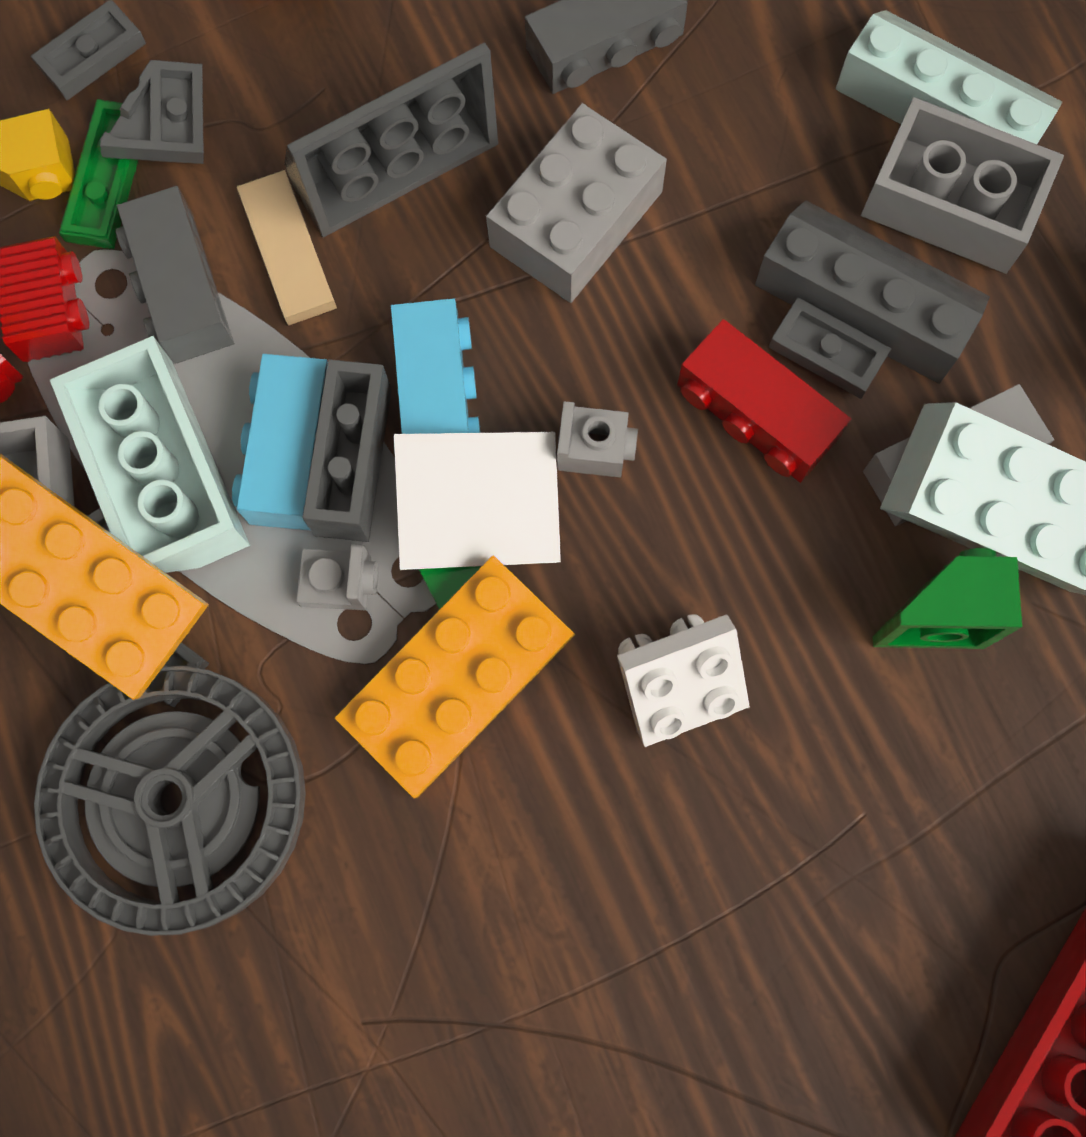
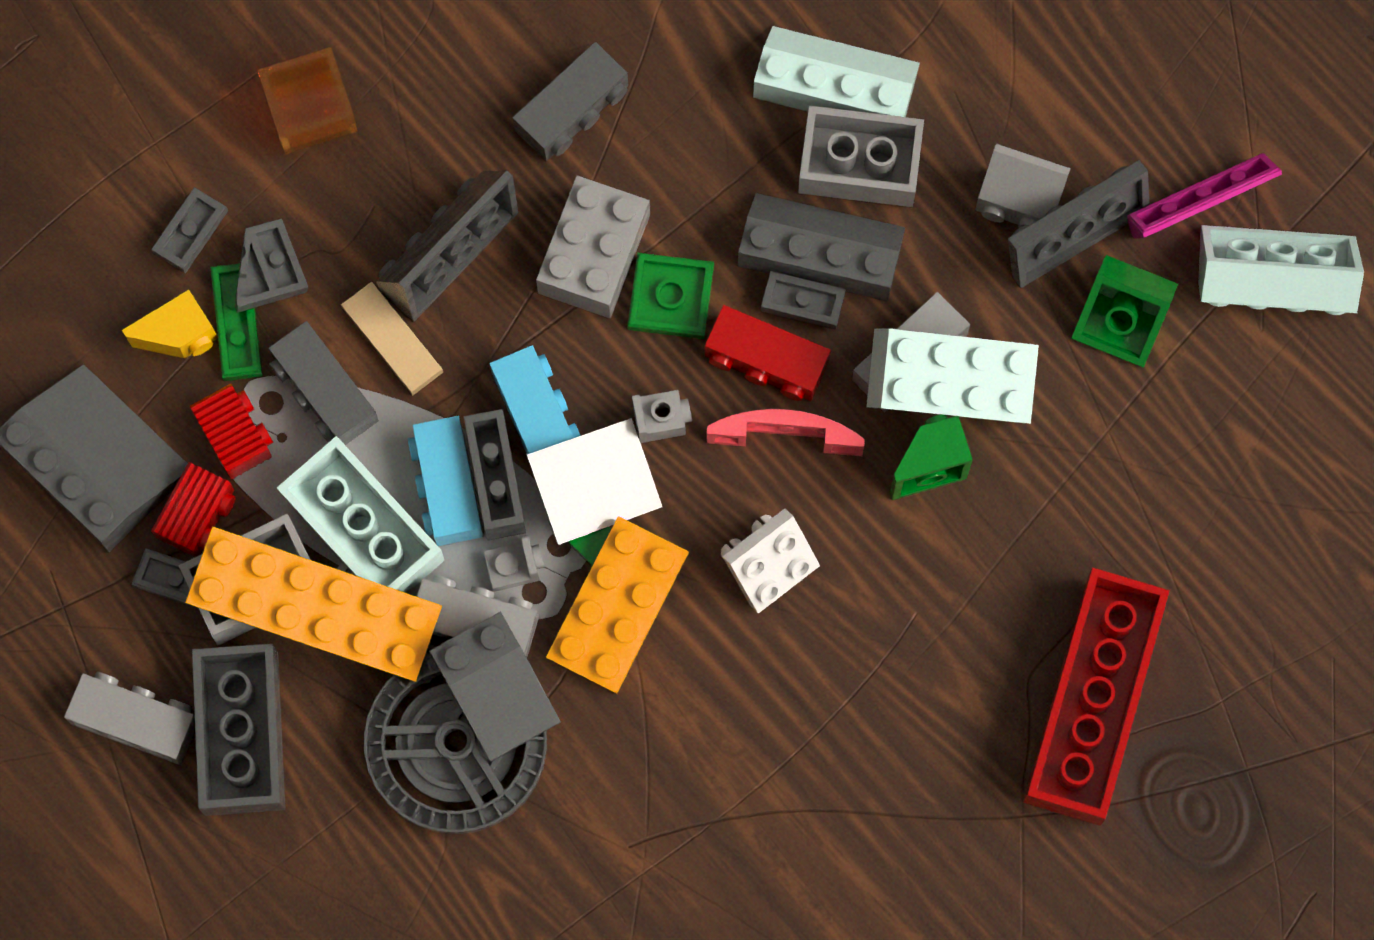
camera: 20 degrees left, 0 degrees up
(237, 740) = (495, 686): none -> dark grey slope
(263, 637) = (466, 609): none -> light grey brick
(657, 295) = (670, 295): none -> green tile
(824, 537) = (837, 437): none -> coral slope

